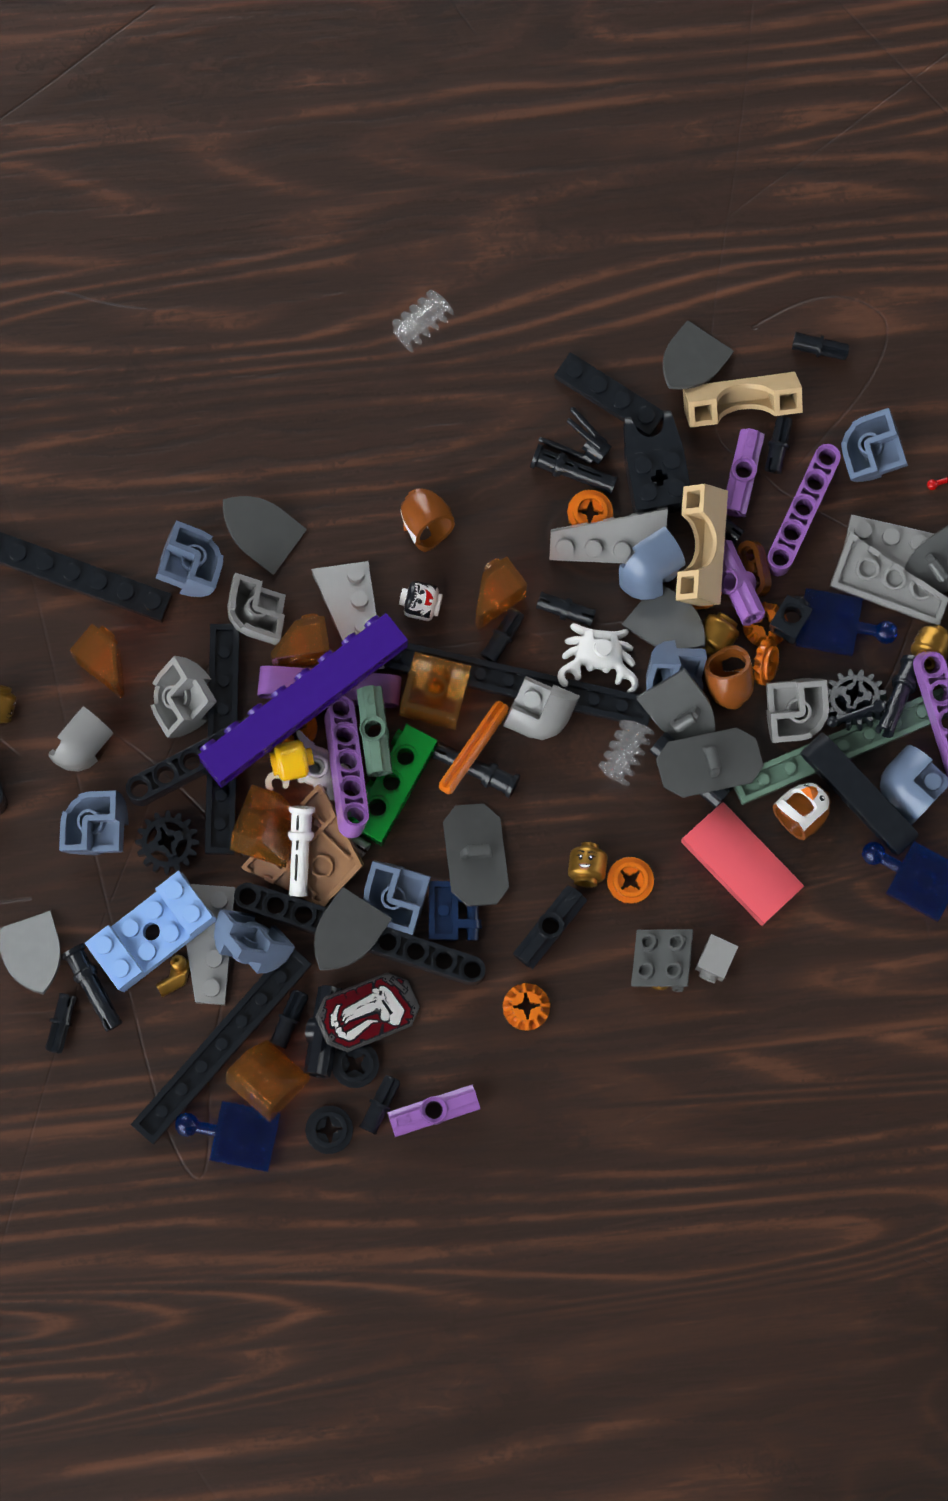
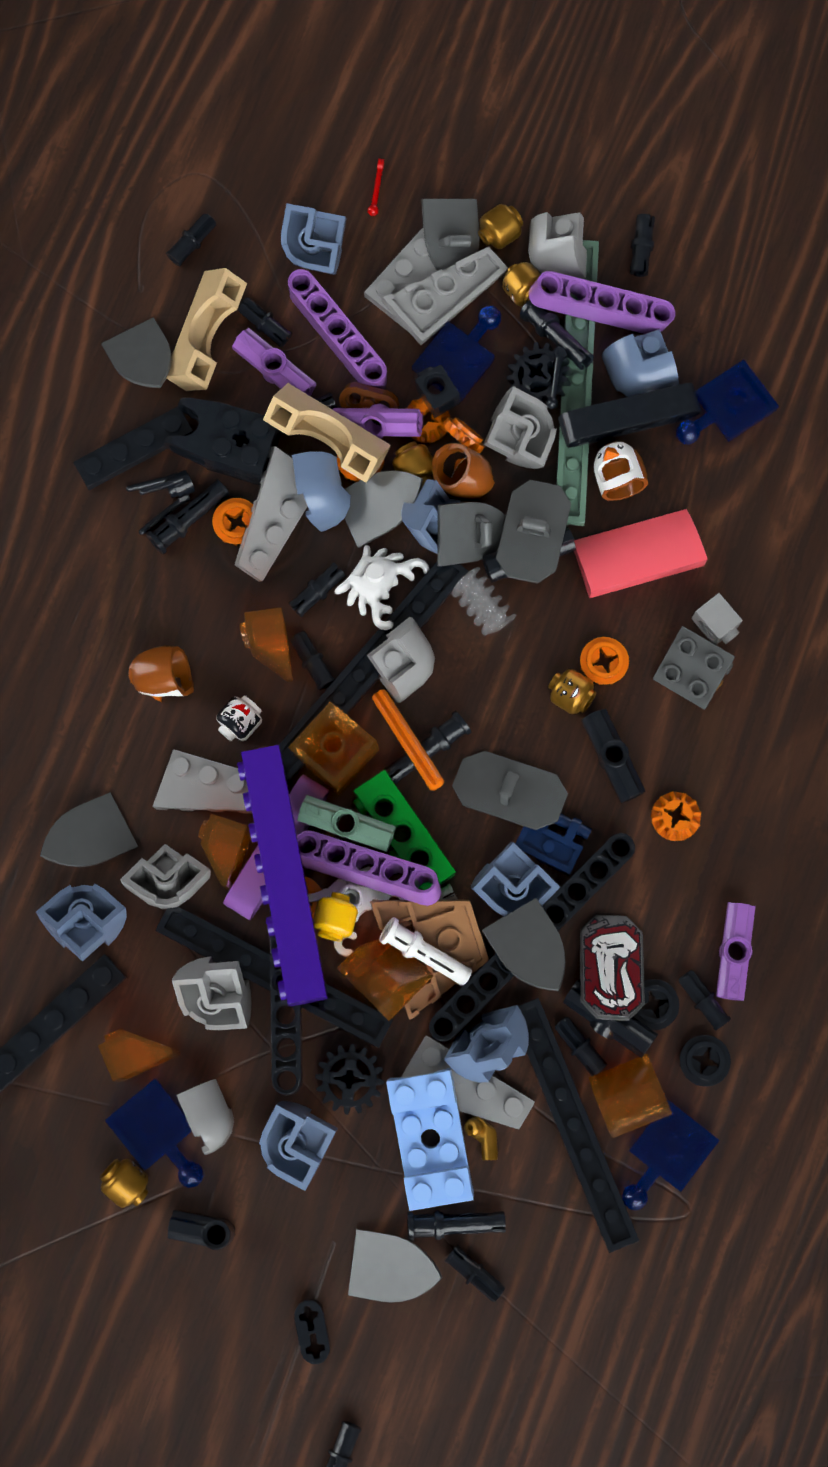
camera: 60 degrees left, 0 degrees up
(48, 705) = (152, 1127): none -> clear blue plate

